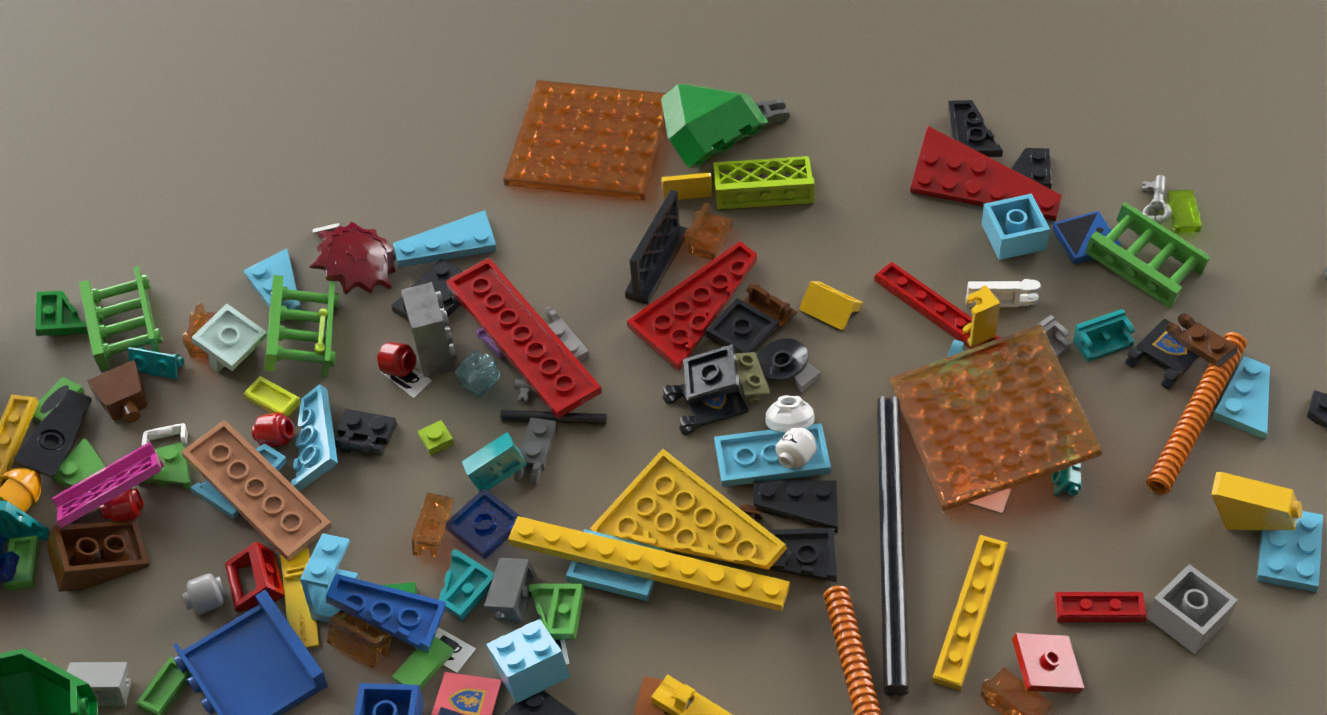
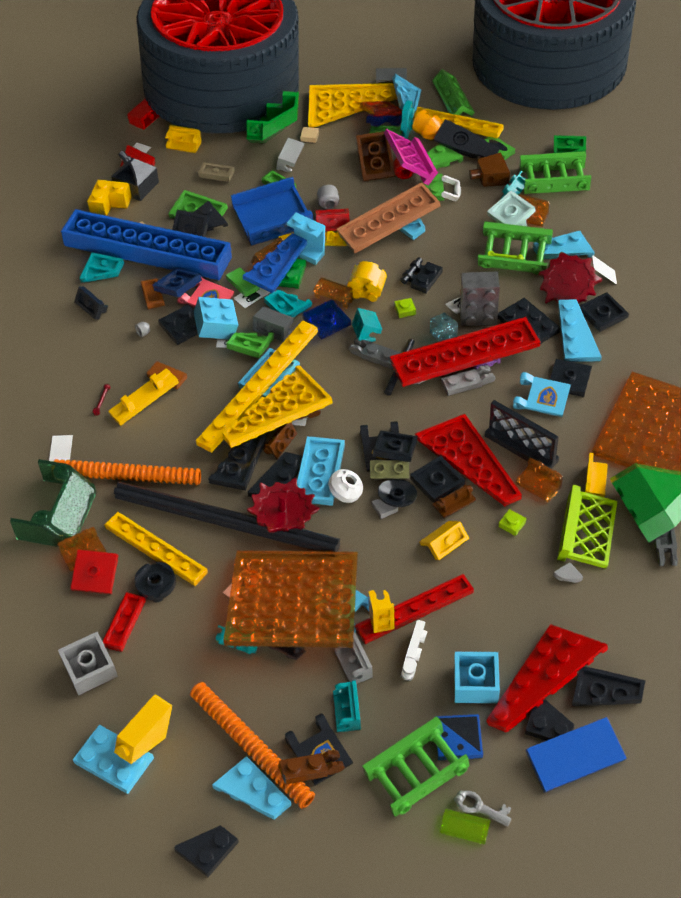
camera: 105 degrees right, 0 degrees up
(271, 397) = (466, 237): neon yellow tile -> none
(273, 430) = (436, 232): red head -> none
(315, 440) = (424, 249): medium azure wing -> none
(401, 220) = (603, 311): none -> black plate
(405, 481) = (367, 281): none -> yellow brick
(526, 237) = (573, 374): none -> black plate
(569, 250) = (544, 396): none -> medium azure flag
(778, 248) = (512, 522): none -> lime plate
(796, 448) = (308, 472): white head -> none
(832, 187) = (568, 573): none -> light grey tile
(860, 464) = (282, 506): none -> dark red piece
(1023, 602) = (157, 591): none -> black plate
(1060, 140) = (575, 754): none -> blue tile

